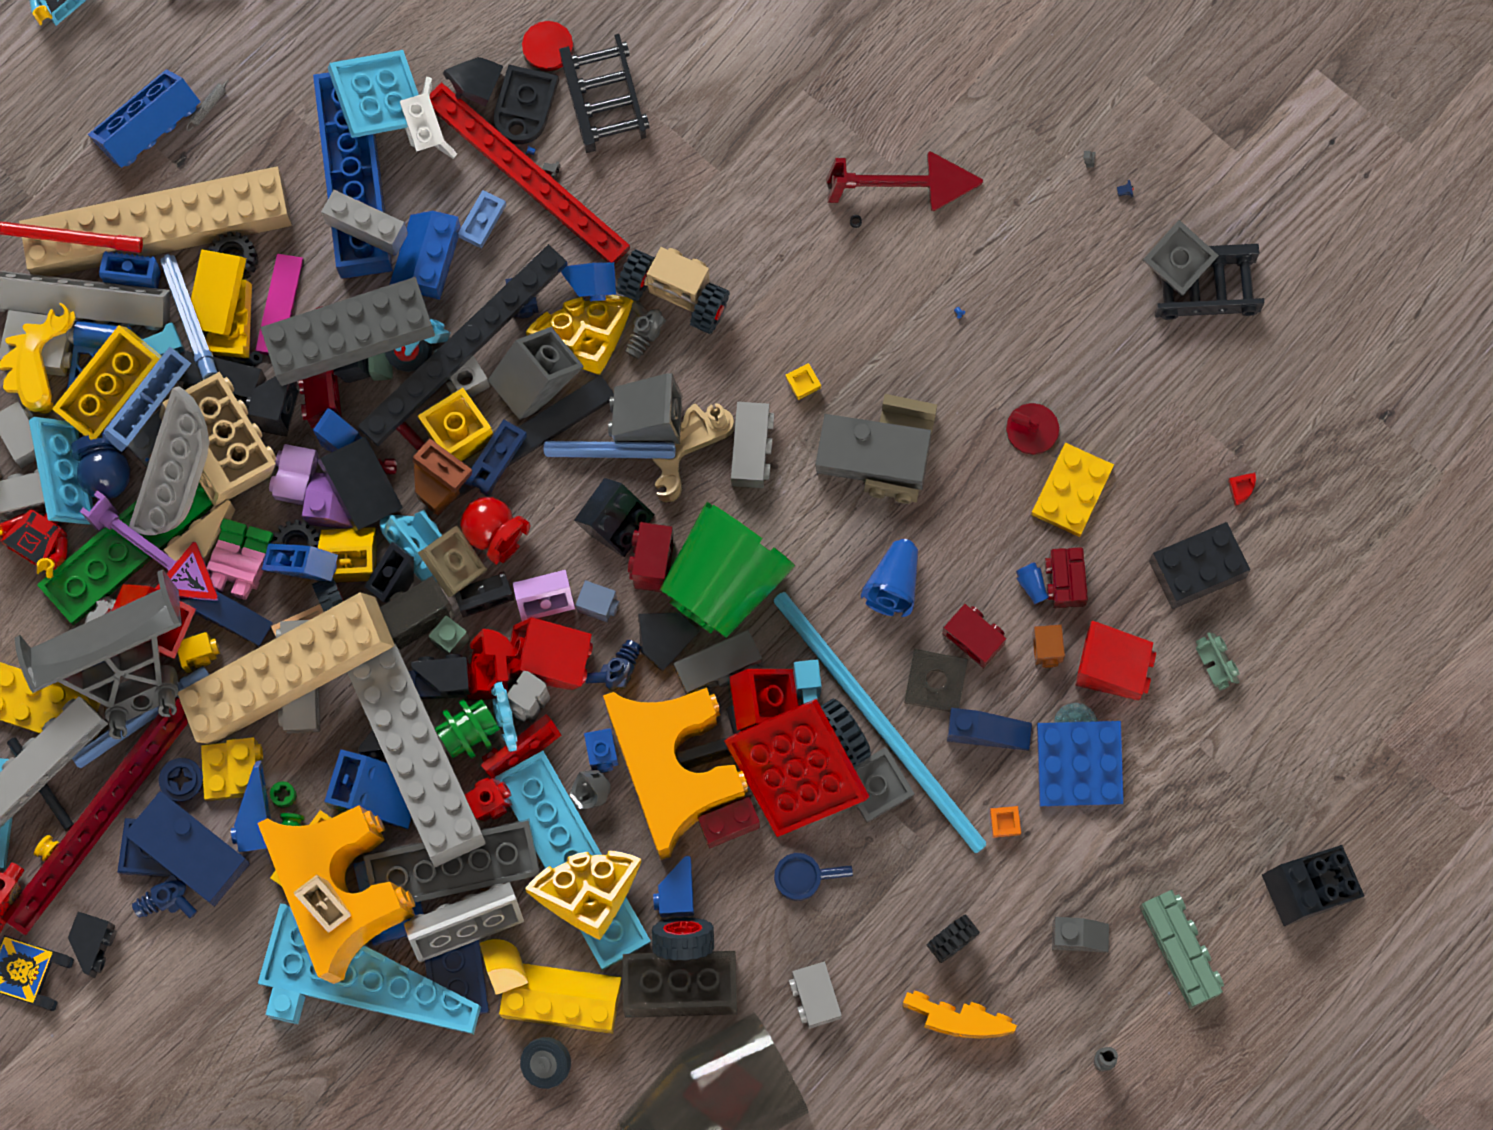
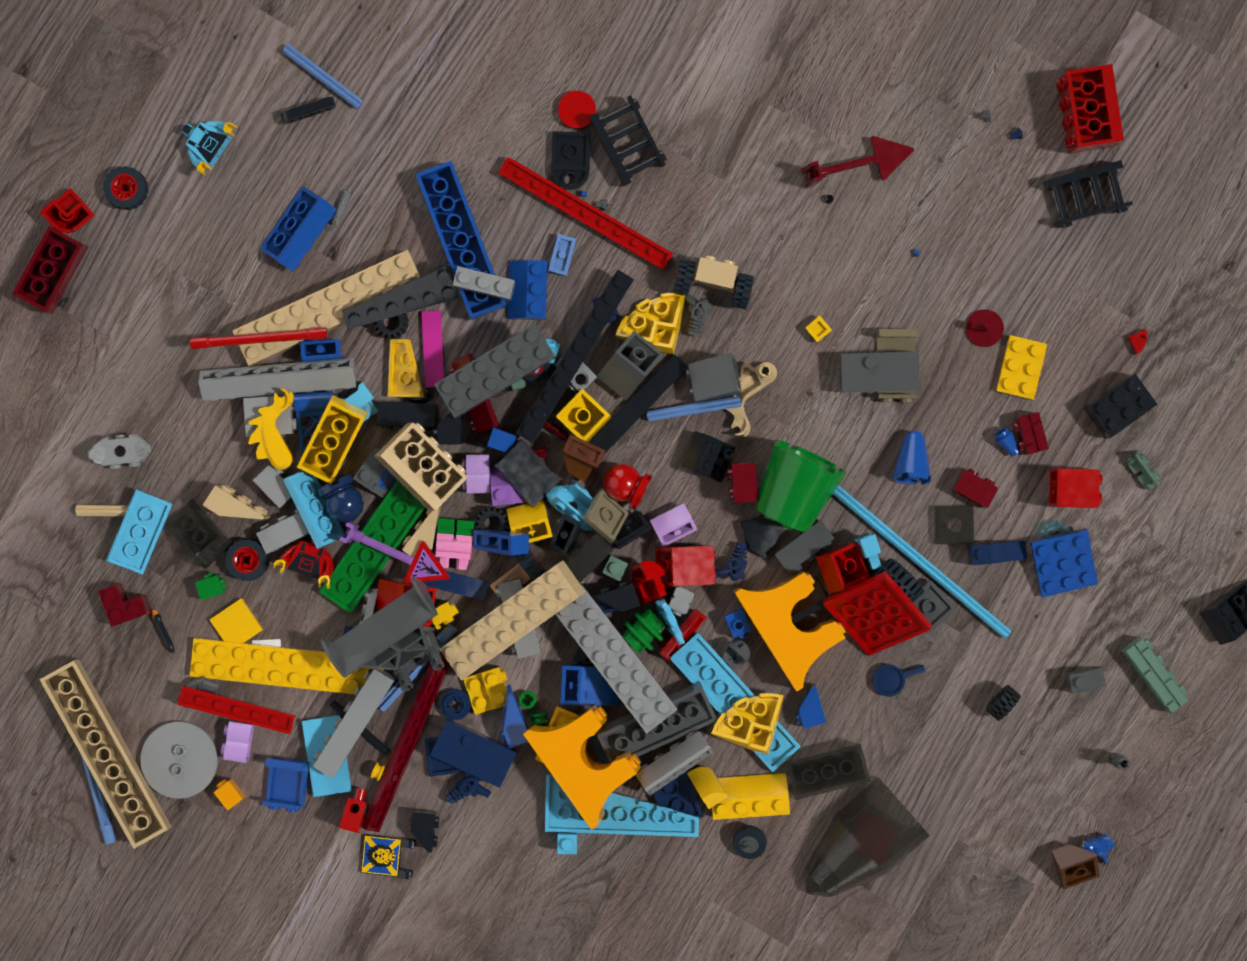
camera: 20 degrees left, 15 degrees up
(146, 399) = (364, 449): medium blue brick -> none
(173, 467) = (398, 498): light grey plate -> none
(202, 355) = (392, 404): axle -> none
(217, 290) = (388, 354): yellow tile -> none
(266, 223) = (418, 293): none -> black wing
(323, 902) = (585, 783): tan slope -> none
(371, 91) = (467, 180): medium azure plate -> none
(422, 123) = (503, 194): white piece -> none
(474, 79) = (531, 149): black slope -> none
(489, 799) = (667, 681): red brick -> none
(496, 456) = (617, 431): dark blue plate -> none
(591, 279) = (653, 287): blue slope -> none
(597, 601) = (711, 520): sand blue brick -> none
(683, 938) = (823, 743): black wheel -> none
(729, 822) = (836, 656): dark red brick -> none
(751, 445) = (792, 384): light grey brick -> none
(815, 995) = (919, 758): light grey brick -> none
(970, 1023) = (1023, 753): light orange slope -> none
(1005, 821) = (1020, 613): orange plate -> none
(1048, 645) = (1027, 485): dark orange brick -> none
(1180, 257) = (1068, 184): dark grey plate -> none
(1227, 171) = (1090, 102): none -> red brick

